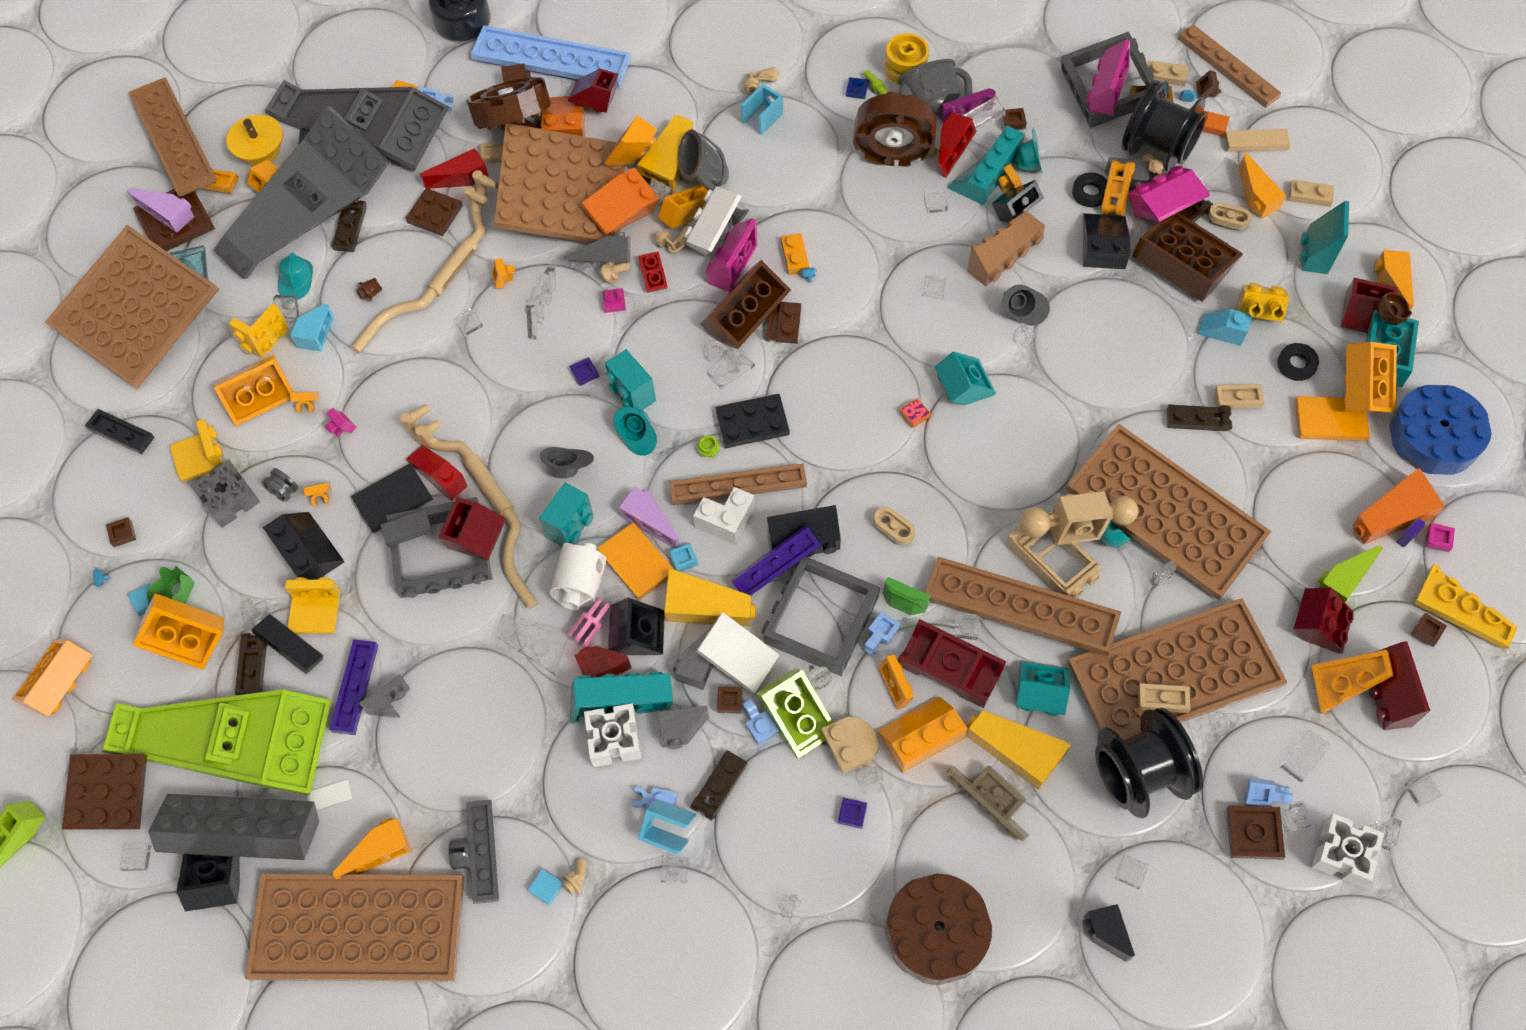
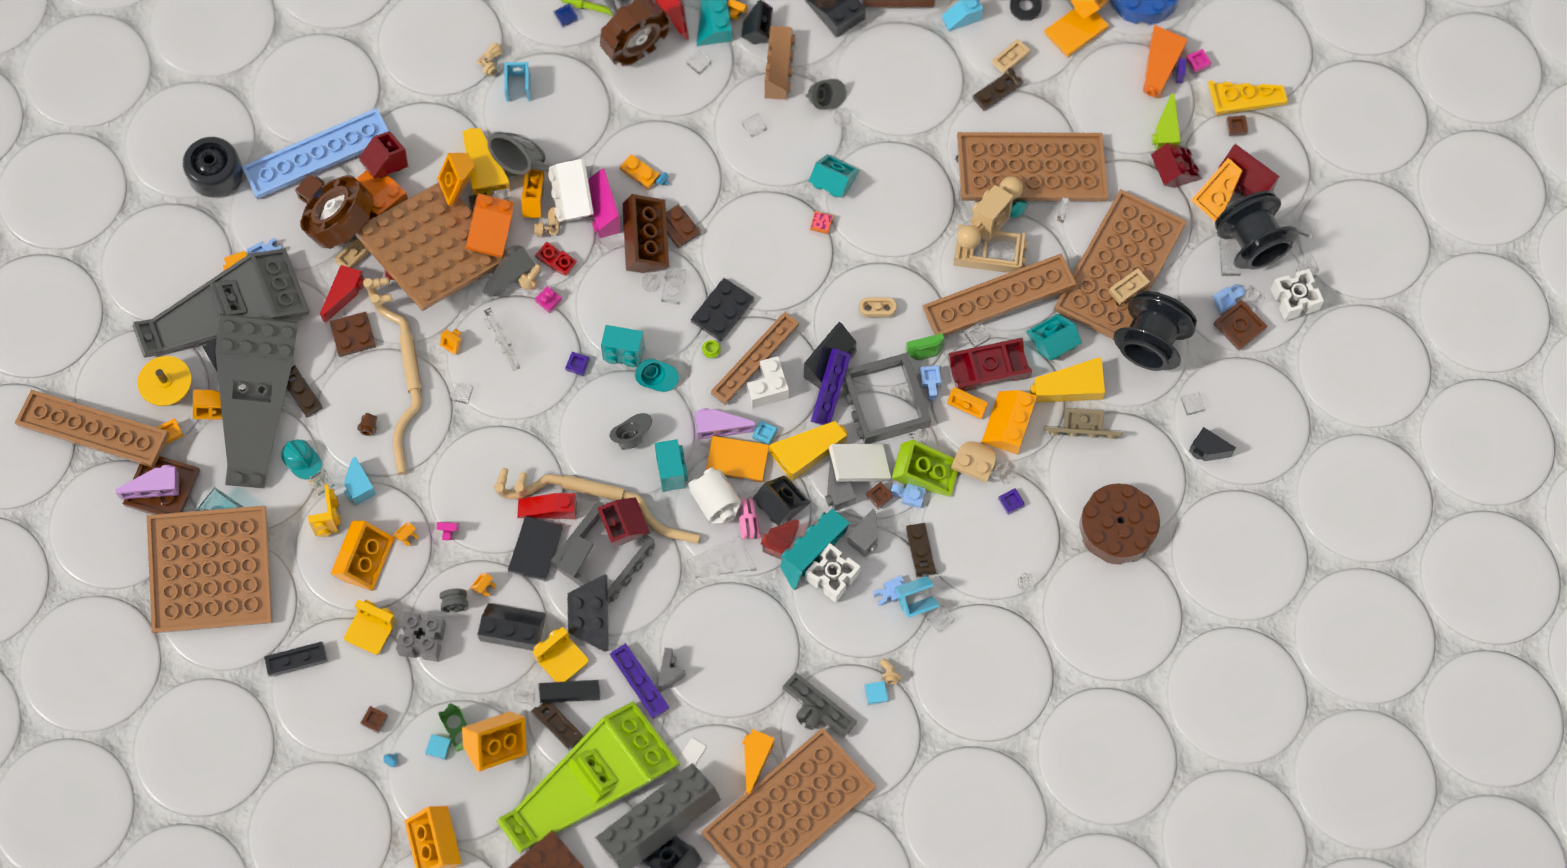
camera: 45 degrees left, 5 degrees up
(372, 589) = (590, 613): none -> black wing
(1355, 746) = (1256, 230): none -> black wheel

